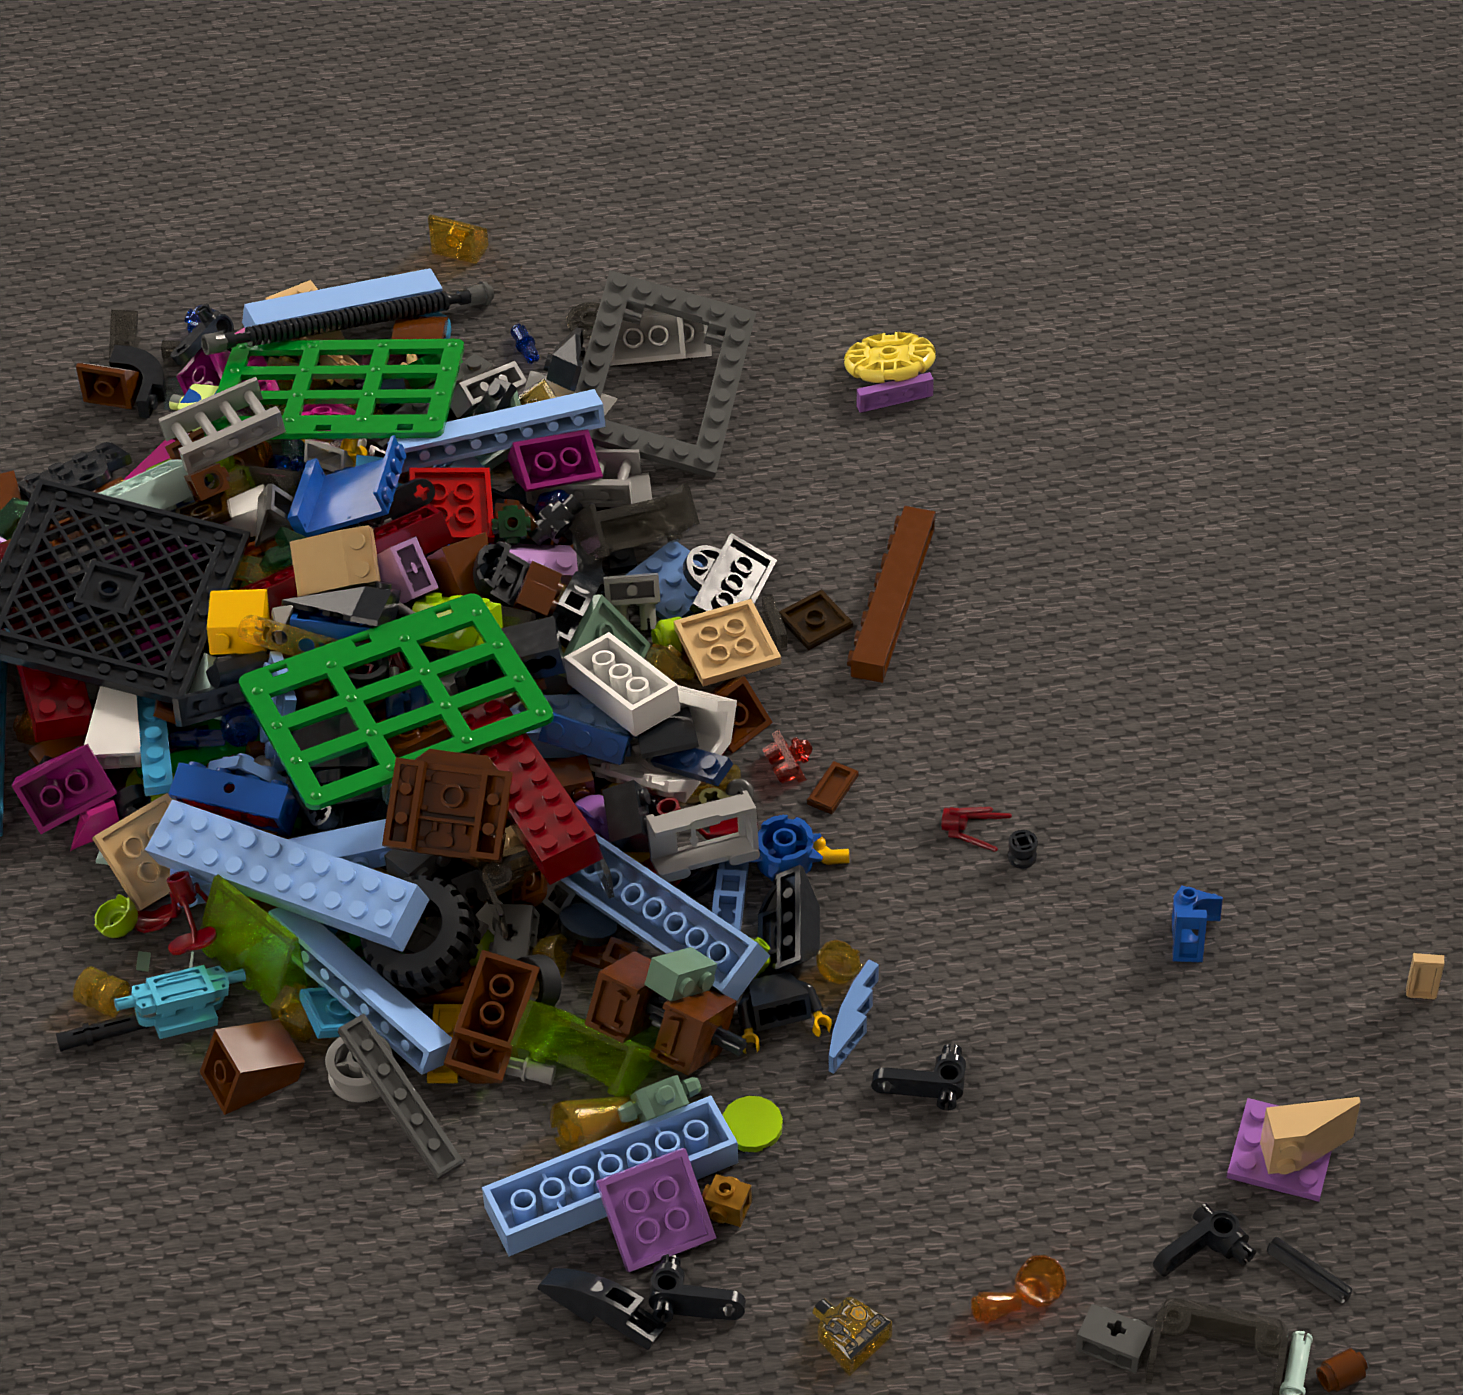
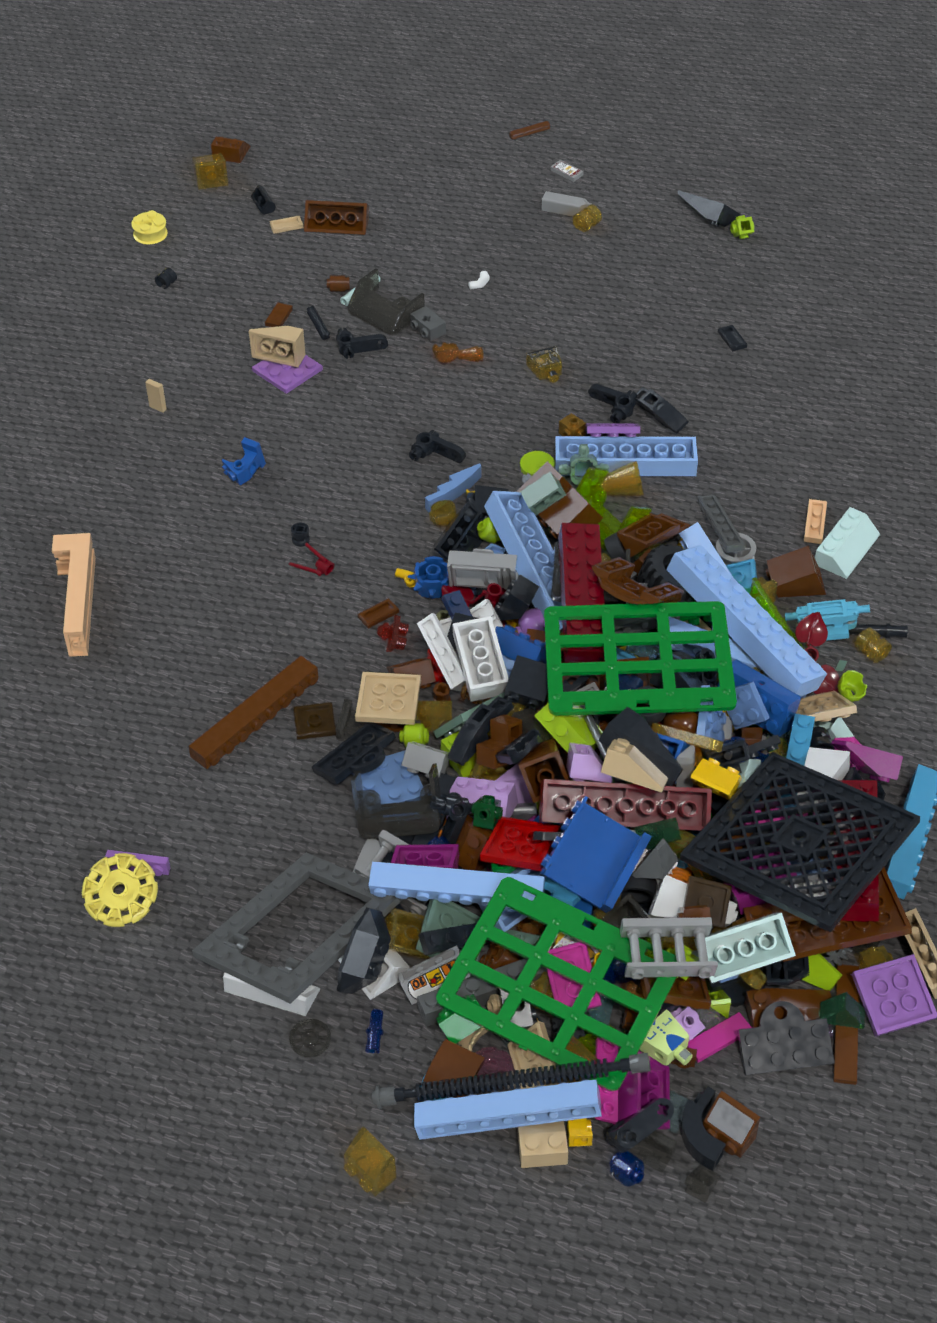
camera: 155 degrees left, 0 degrees up
(192, 1159) = (847, 543): none -> light aqua slope
(255, 1187) = (815, 521): none -> light nougat plate
(1280, 679) = (77, 562): none -> light nougat brick
(1389, 1258) = (278, 315): none -> reddish brown tile

